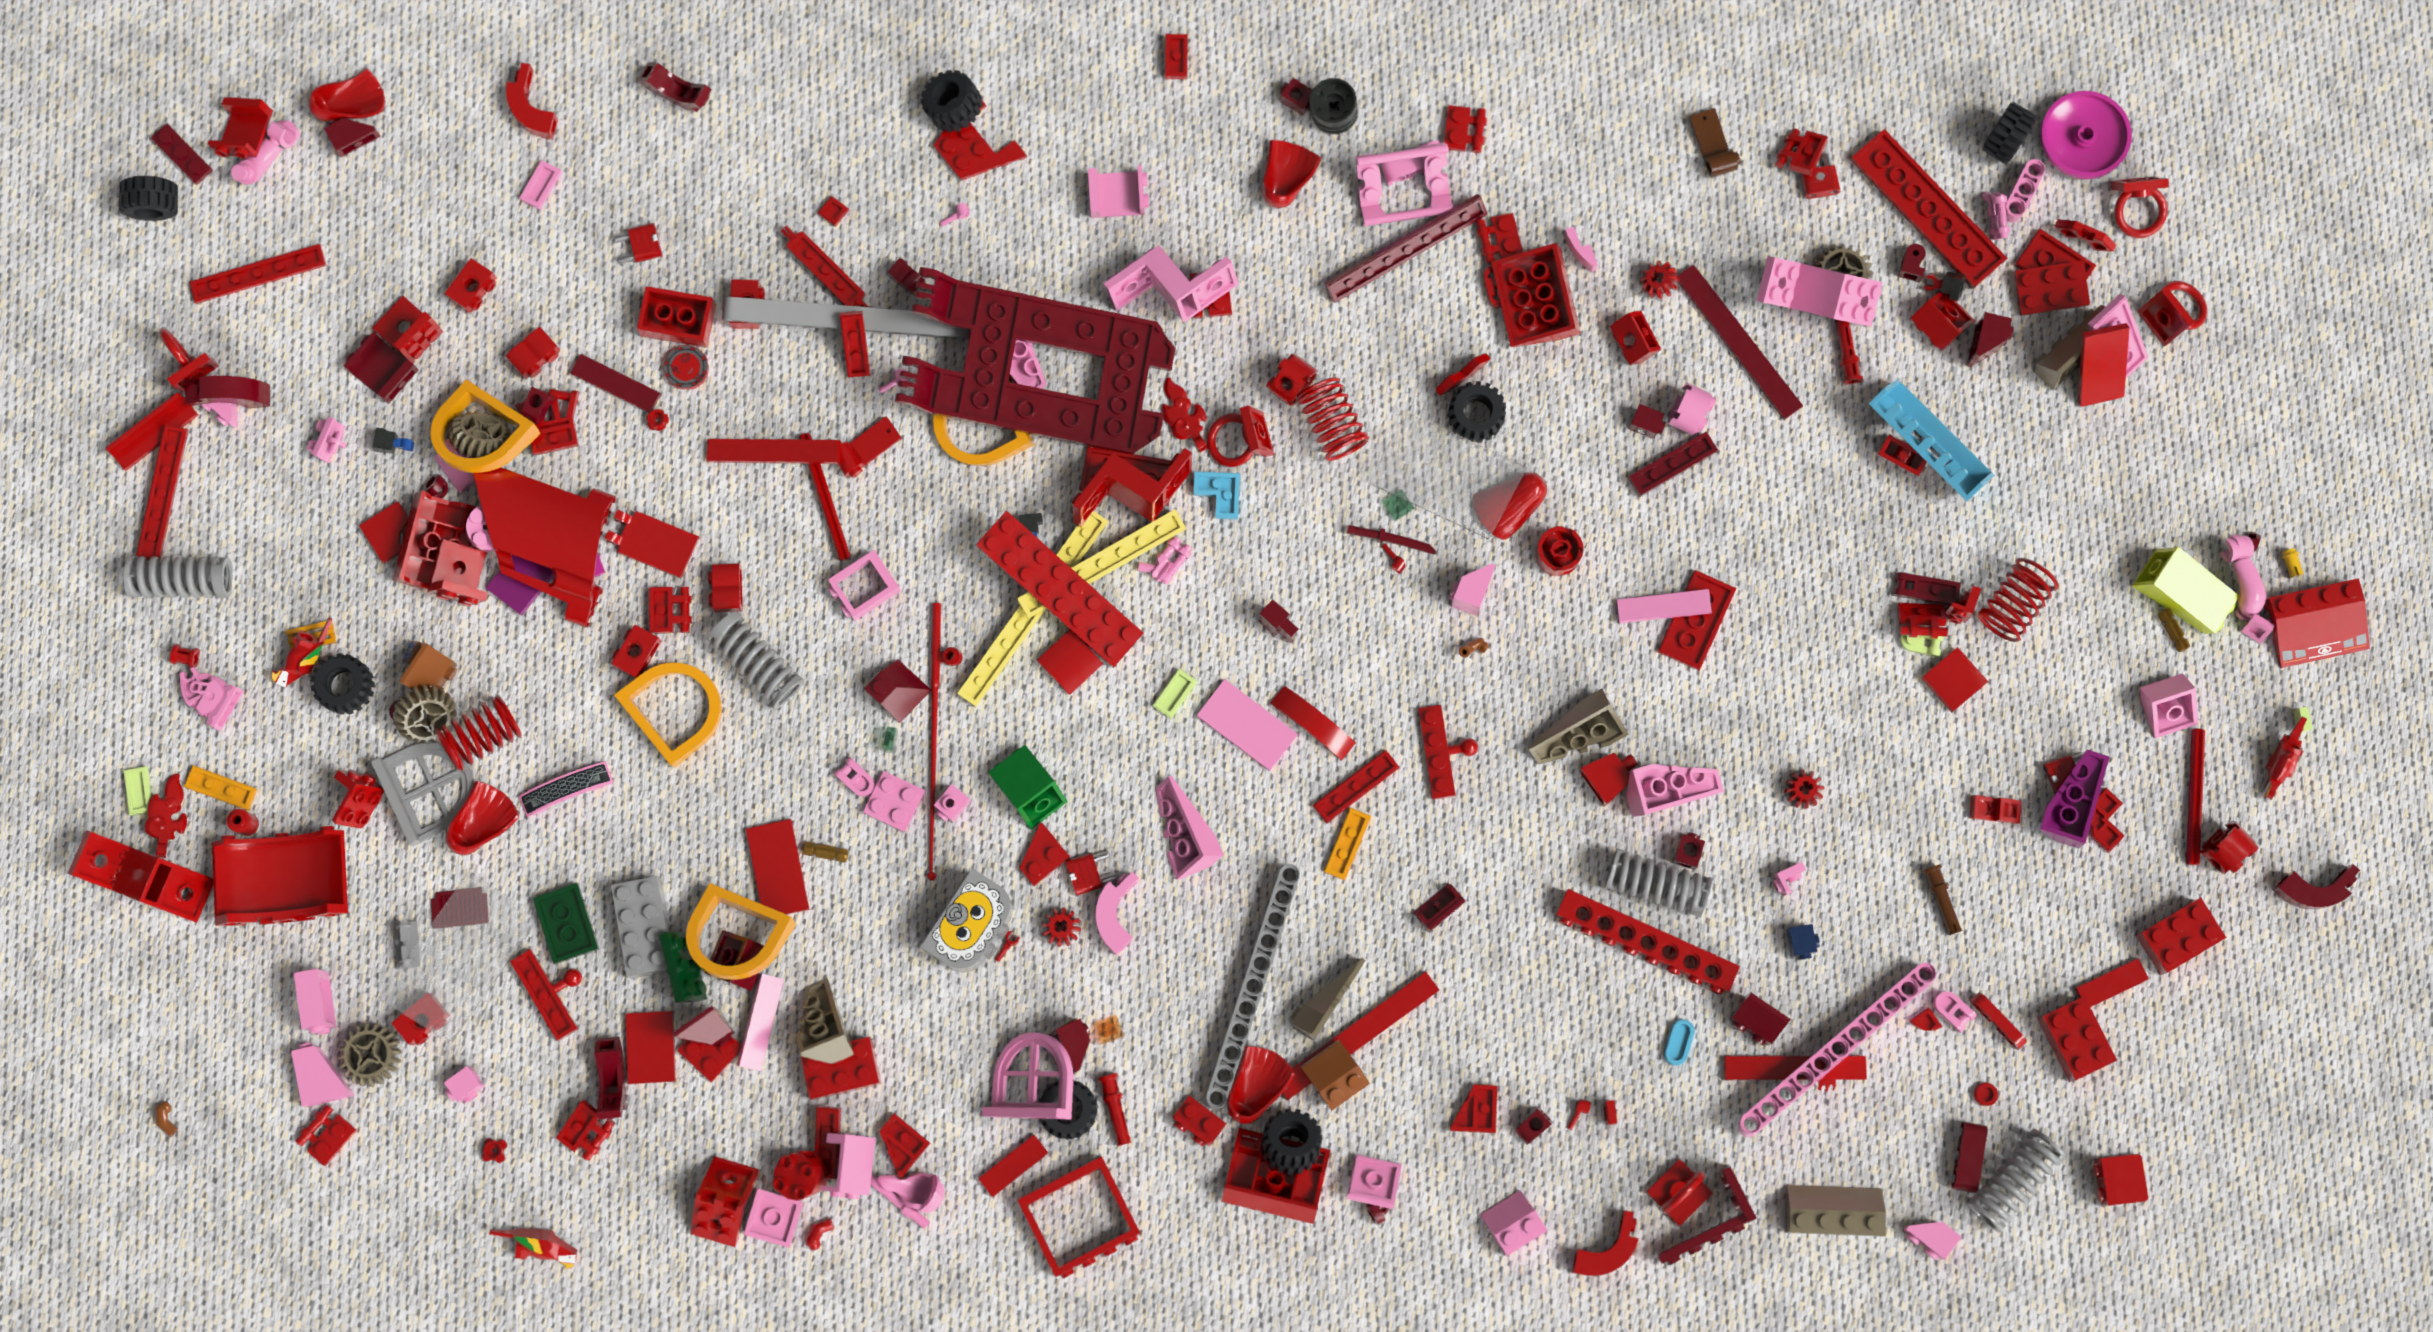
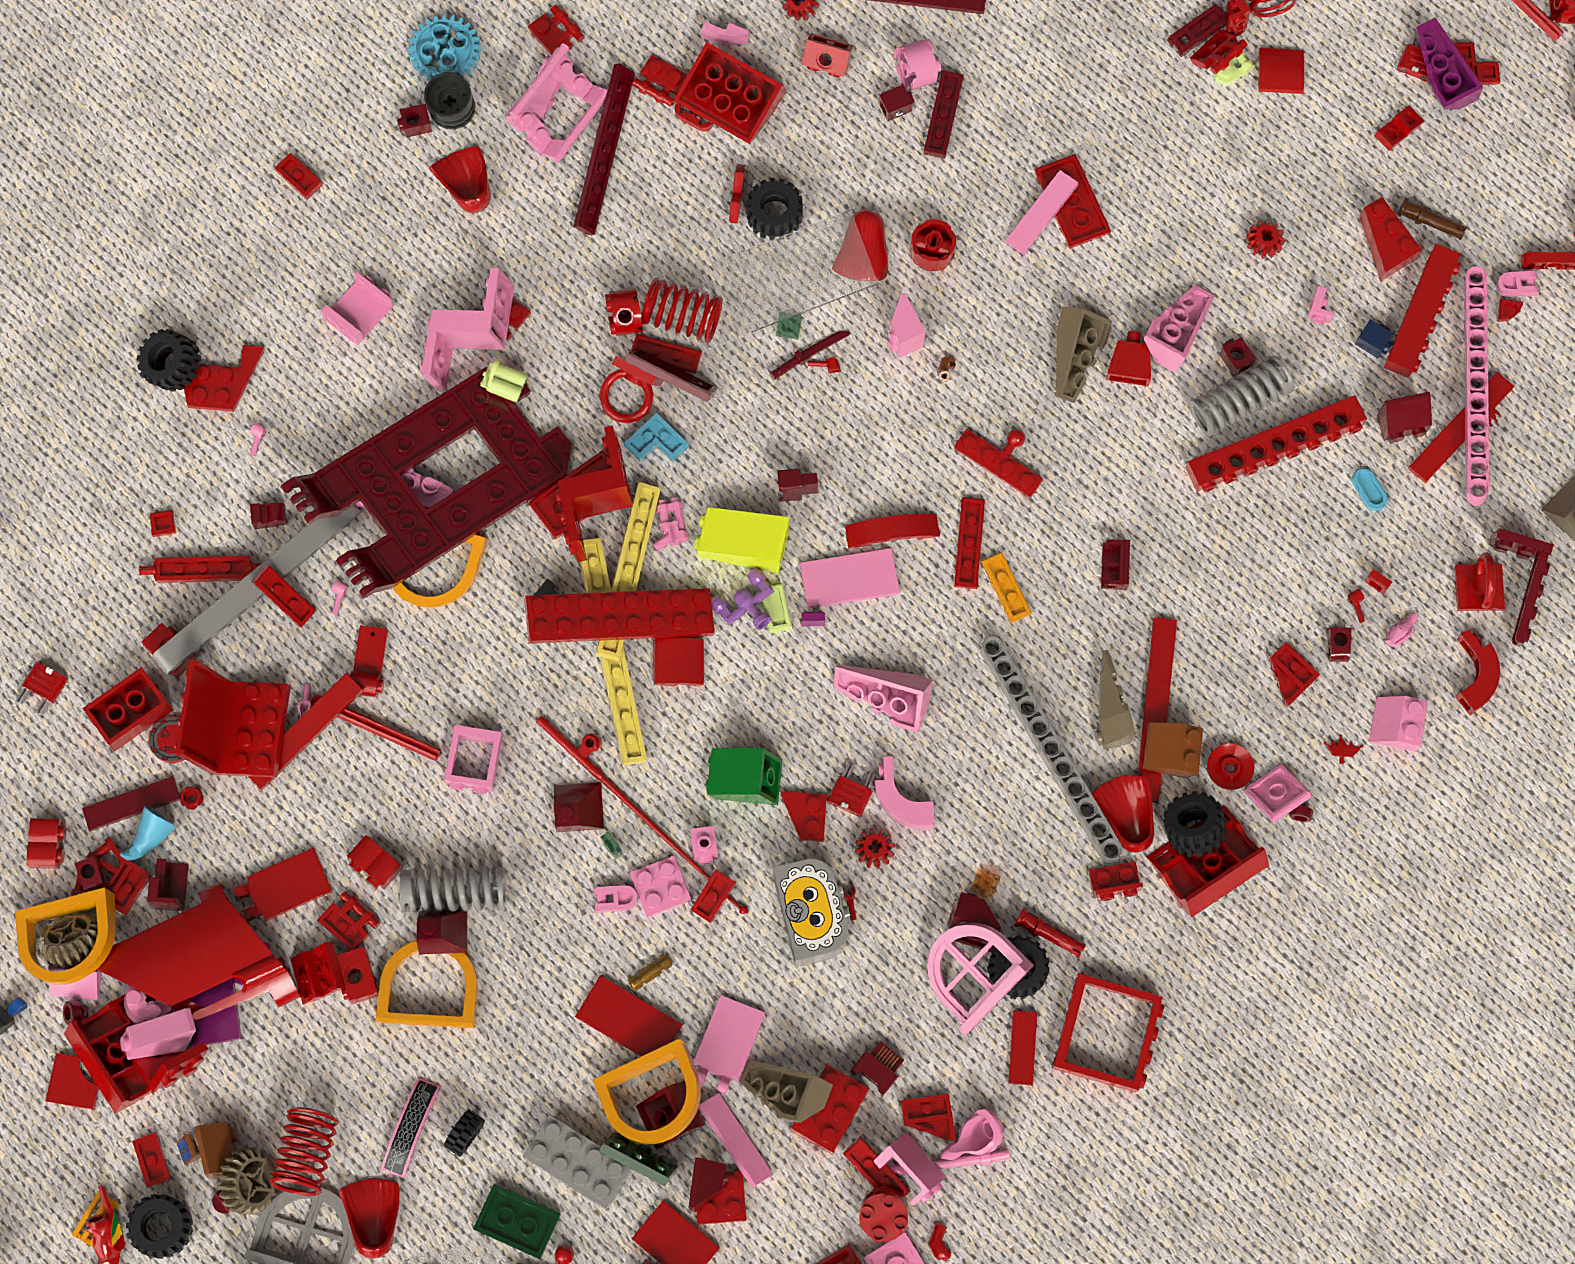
camera: 50 degrees left, 5 degrees down
(383, 635) = (152, 1160): none -> red plate
(466, 558) = (159, 1035): none -> bright pink slope
(581, 464) = (169, 886): none -> dark red panel
(592, 829) = (464, 1132): none -> black tyre
(604, 417) = (150, 833): none -> medium azure hat
(613, 623) = (317, 973): none -> red slope
(718, 680) = (442, 932): none -> dark red slope
(729, 395) = (231, 724): none -> red bracket
(795, 432) = (305, 703): none -> bright pink hand
(825, 952) = (728, 1041): none -> bright pink tile
(904, 1076) = (879, 1067): none -> dark red piece
(920, 845) = (713, 896): none -> red plate
(1158, 345) = (503, 380): none -> yellowish green piece
(1158, 668) = (746, 602): none -> medium lavender piece
(1182, 424) = (579, 420): red piece -> none
(1190, 727) = (812, 619): none -> magenta tile
(1202, 622) = (743, 538): none -> neon yellow slope
(1275, 456) = (671, 374): none -> dark red tile
(1292, 438) = (674, 354): none -> red tile
(1366, 46) = (426, 40): none -> medium azure gear
(1375, 1129) = (1235, 756): none -> red dish
(1455, 1200) = (1342, 749): none -> red piece
(1588, 1163) = (1401, 630): none -> bright pink piece
(1860, 956) = (1422, 310): none -> red brick
(1893, 880) = (1388, 239): none -> red wedge

